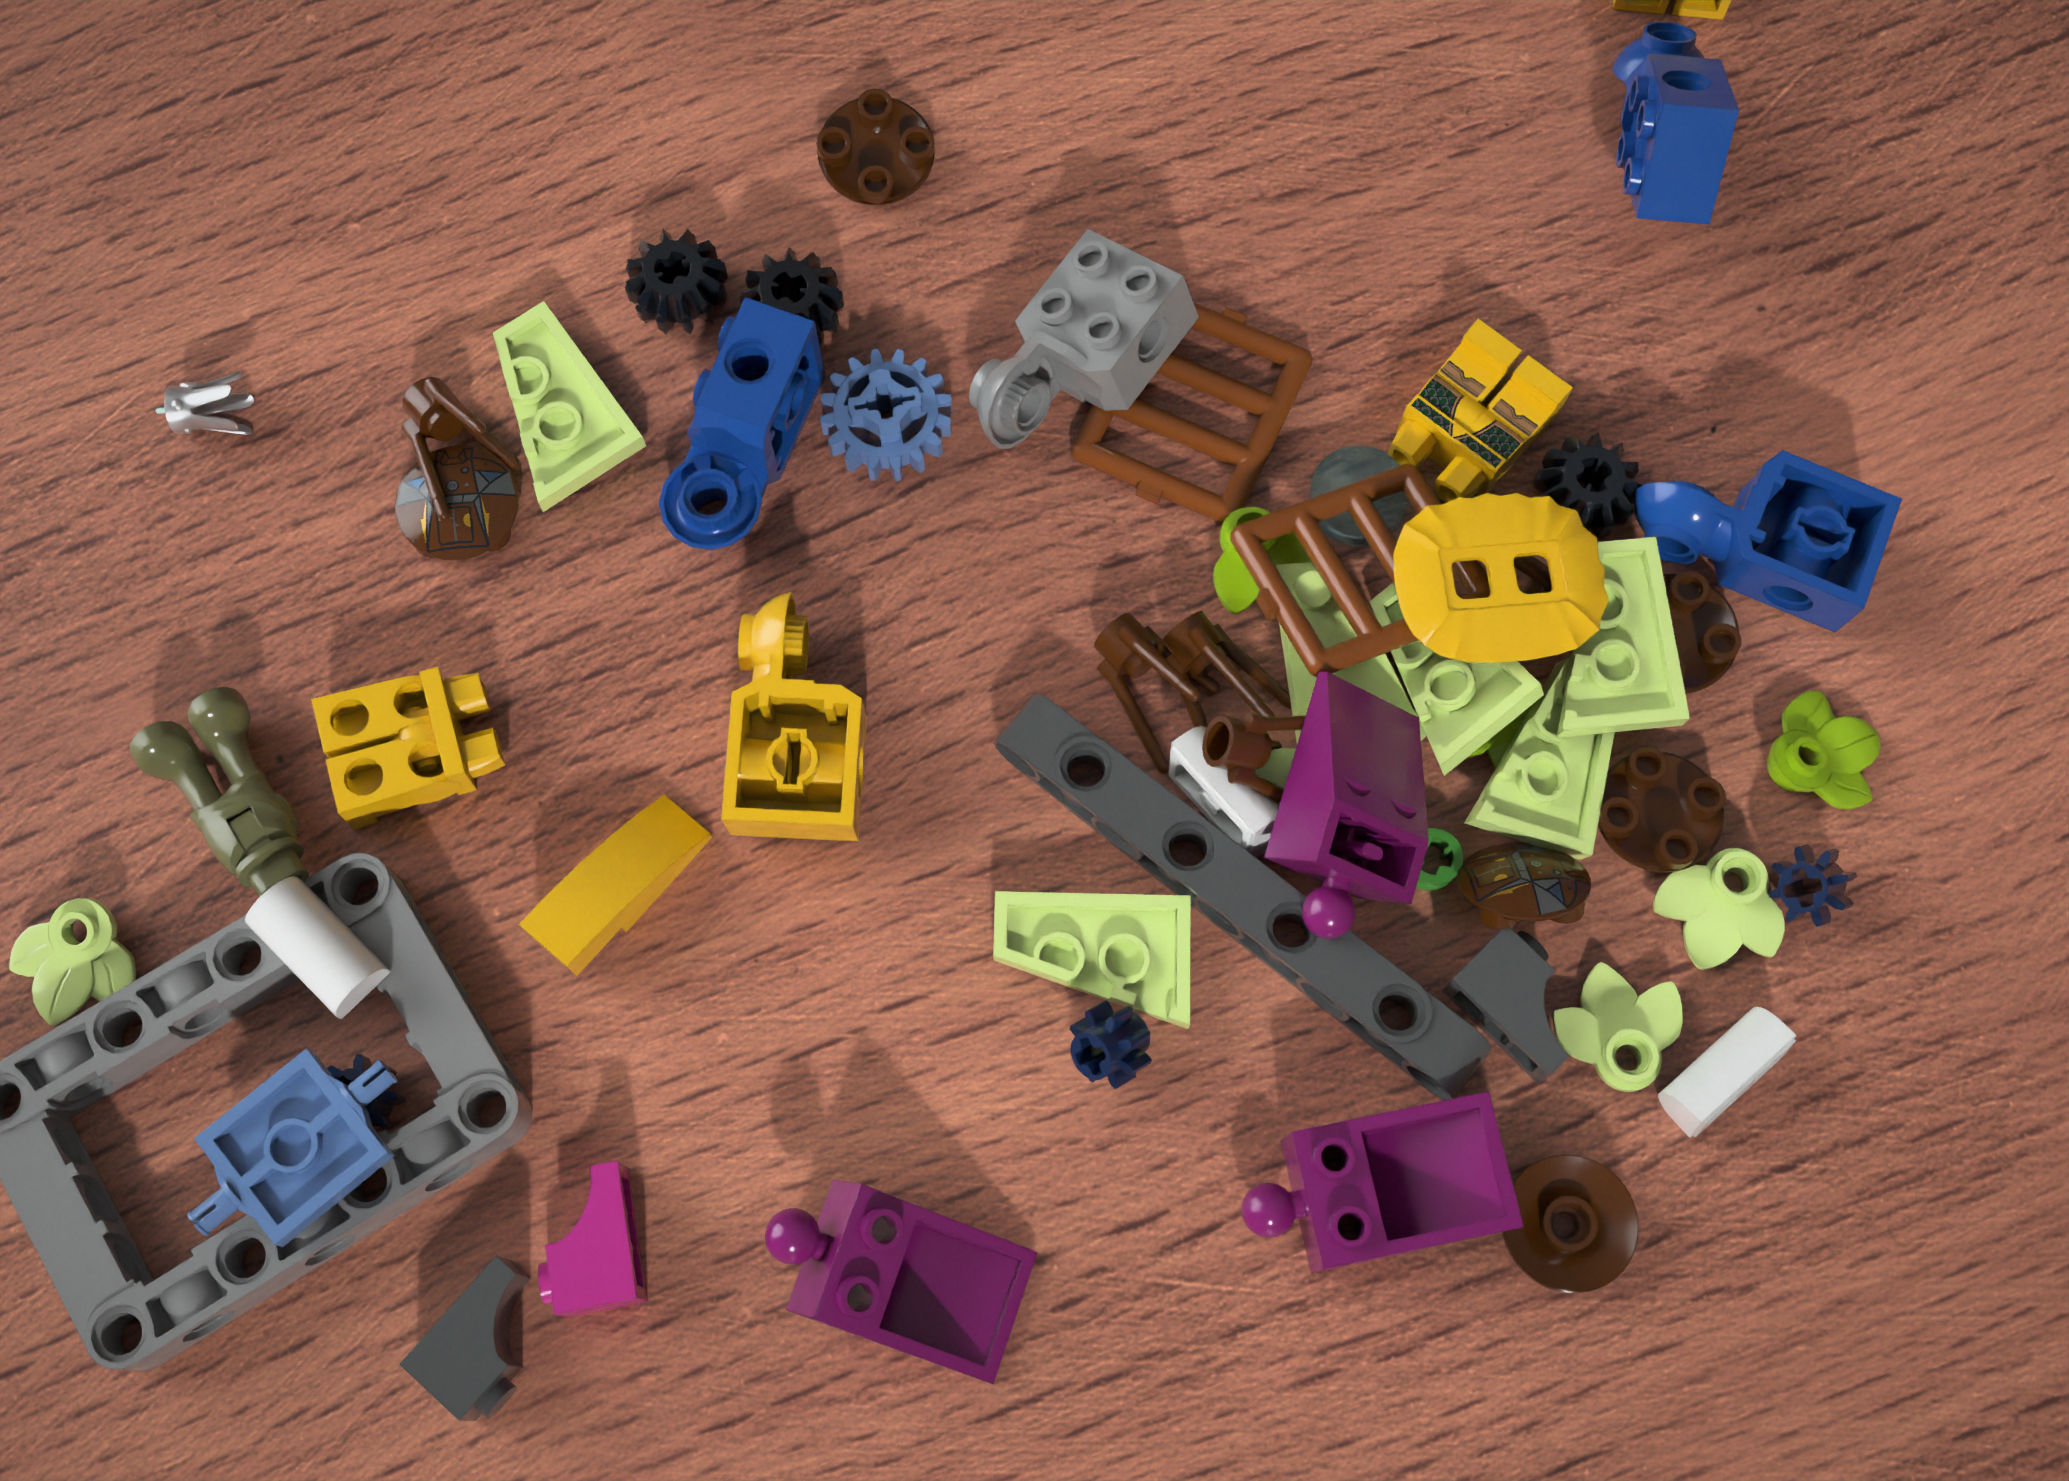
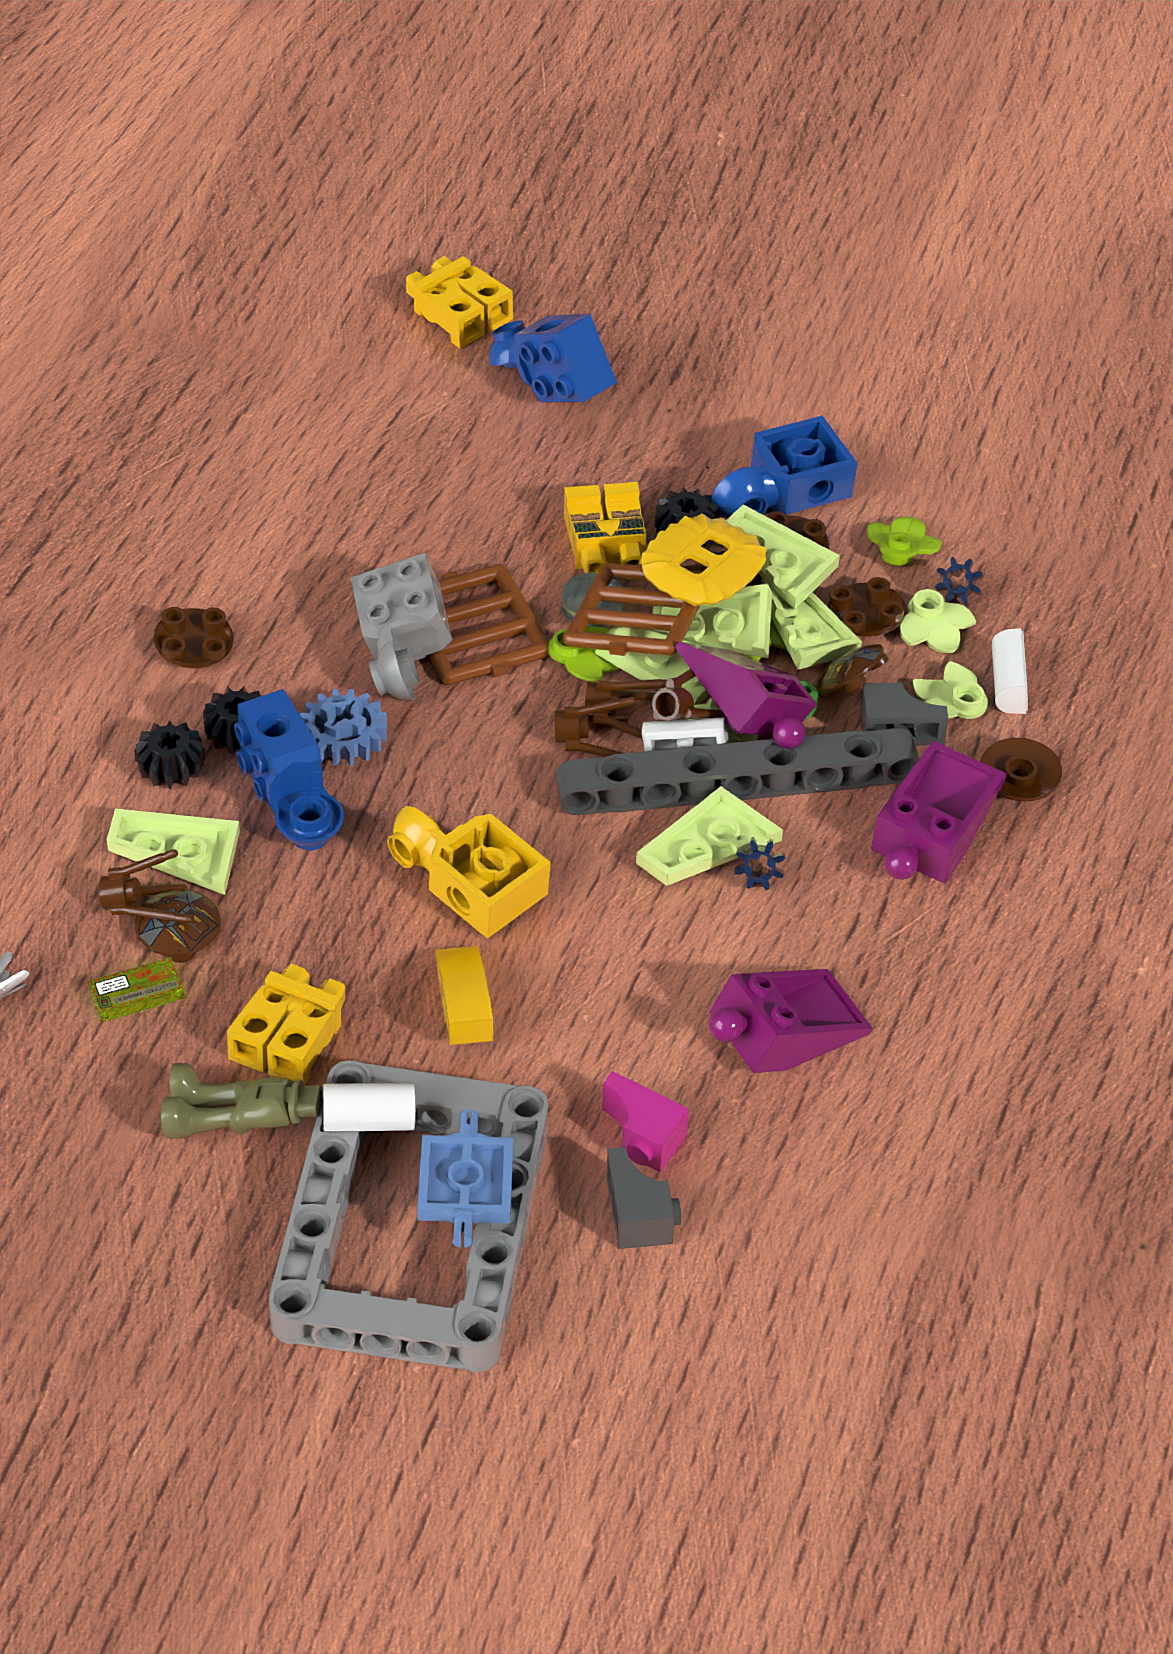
camera: 50 degrees left, 25 degrees down
(71, 970) = (242, 1247): yellowish green plate -> none
(330, 545) = (136, 989): none -> clear neon green tile

